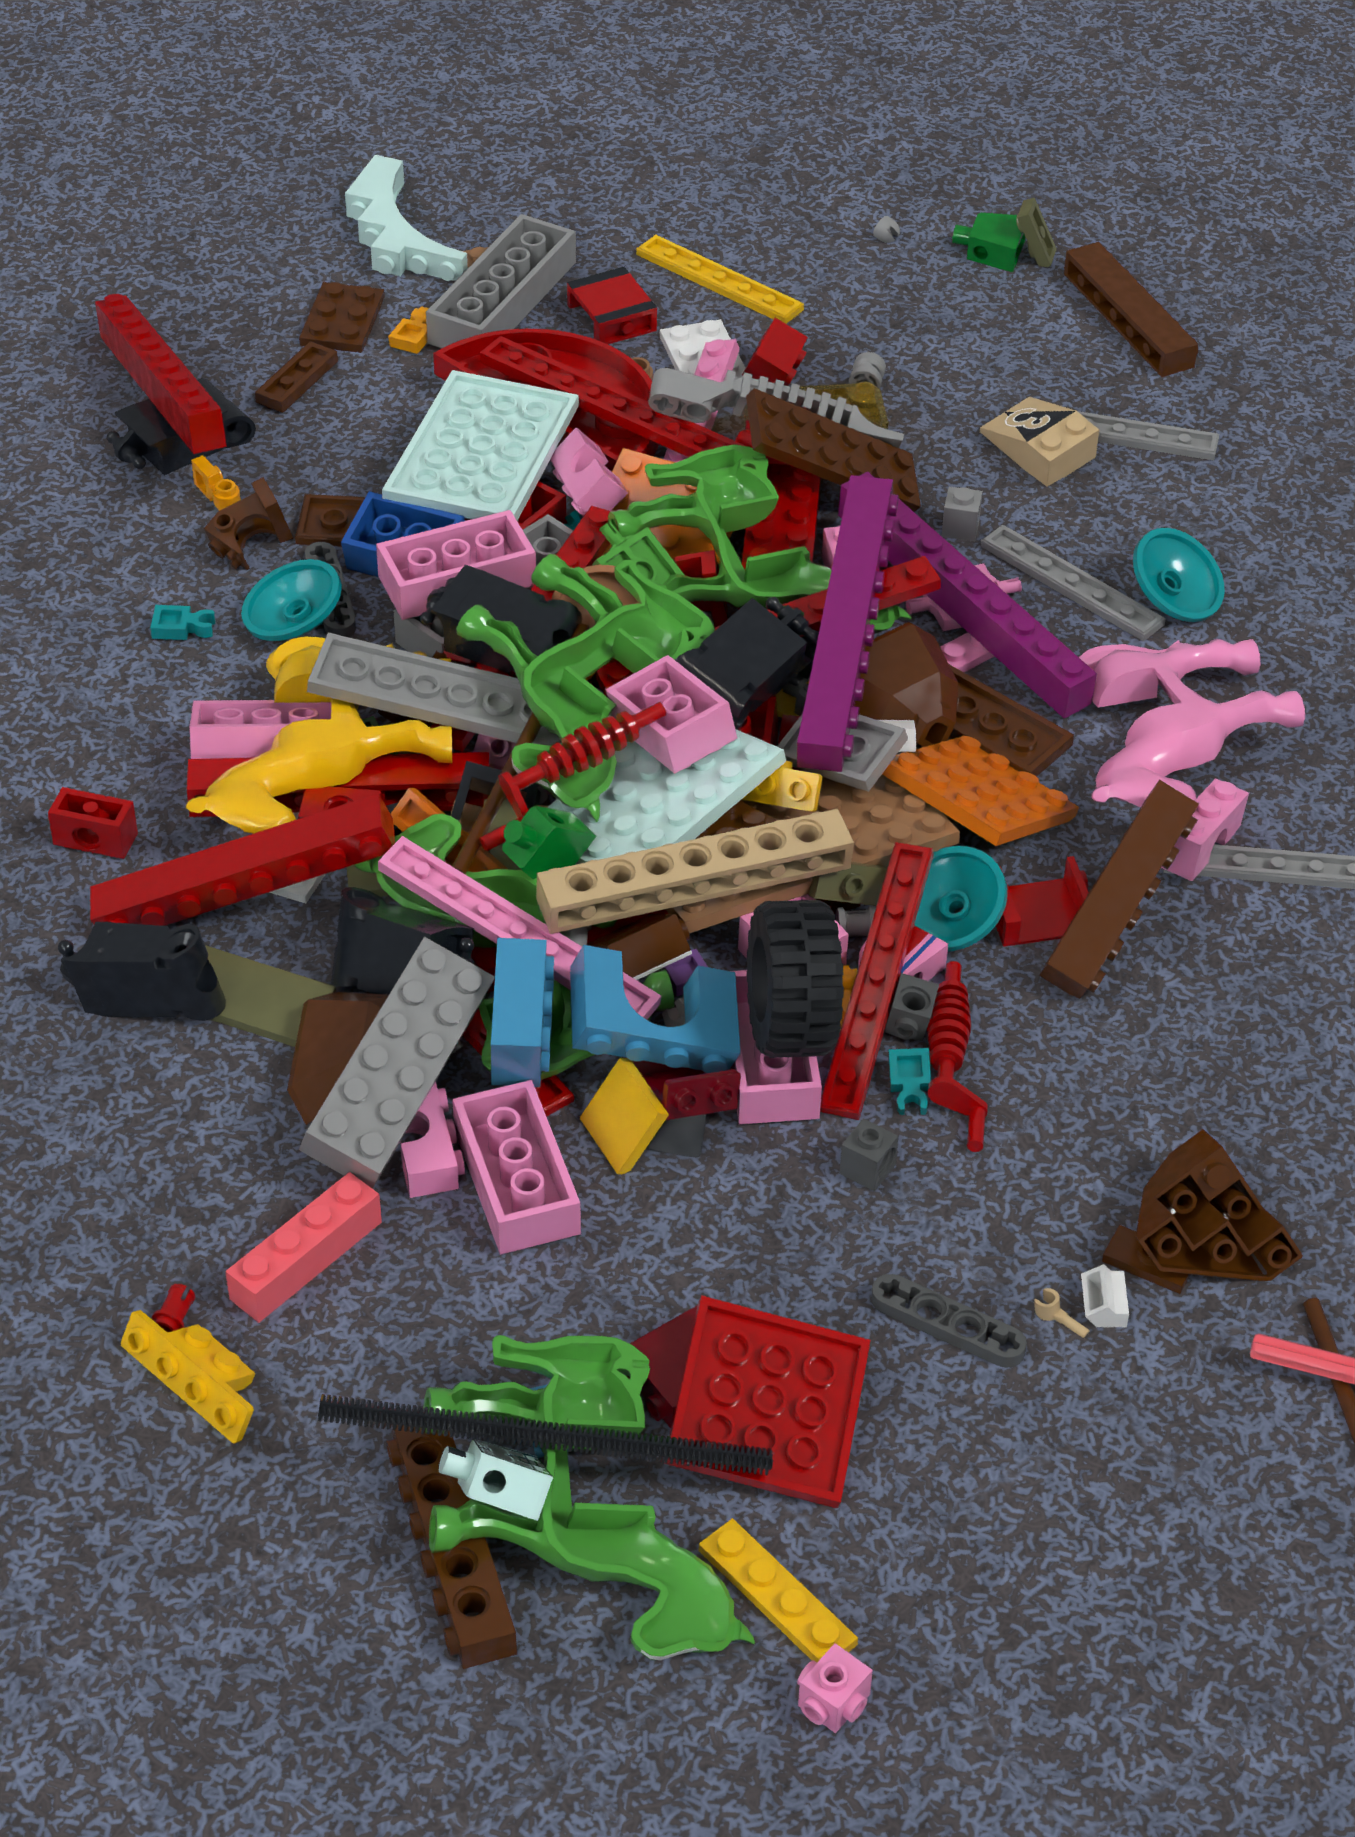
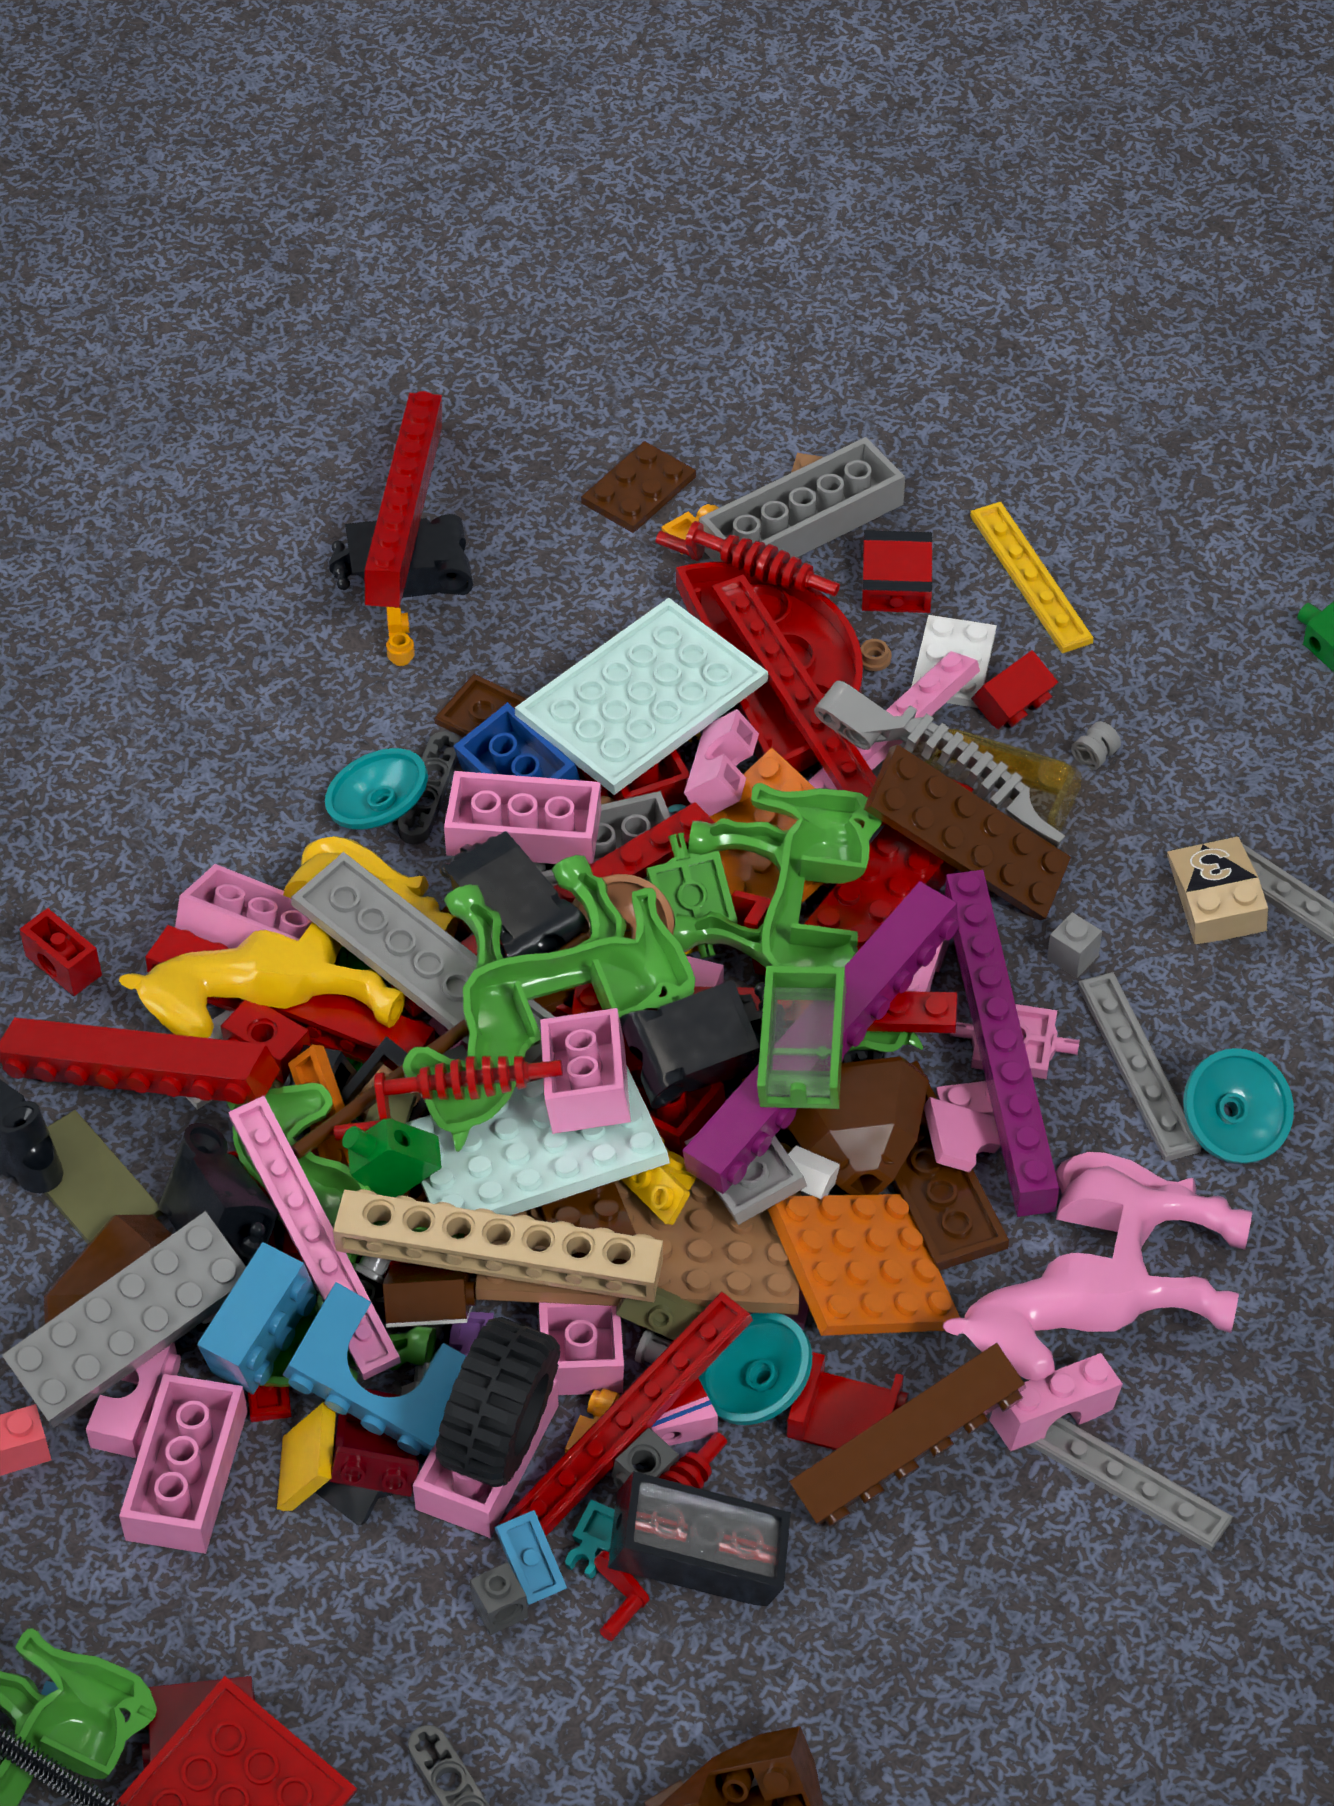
camera: 30 degrees right, 5 degrees up
(177, 621) = (273, 767): teal plate -> none
(243, 520) = (392, 683): reddish brown tile -> none
(296, 377) = (550, 539): reddish brown plate -> none
(391, 238) = (736, 398): light aqua arch -> none
(487, 322) = (755, 557): none -> red piece
(844, 616) = (802, 1037): none -> door
(862, 1099) = (530, 1557): none -> dark azure plate
(886, 229) = (1236, 575): light grey hinge -> none
(981, 674) = (959, 1133): none -> bright pink tile
(1009, 1035) = (699, 1539): none -> brick

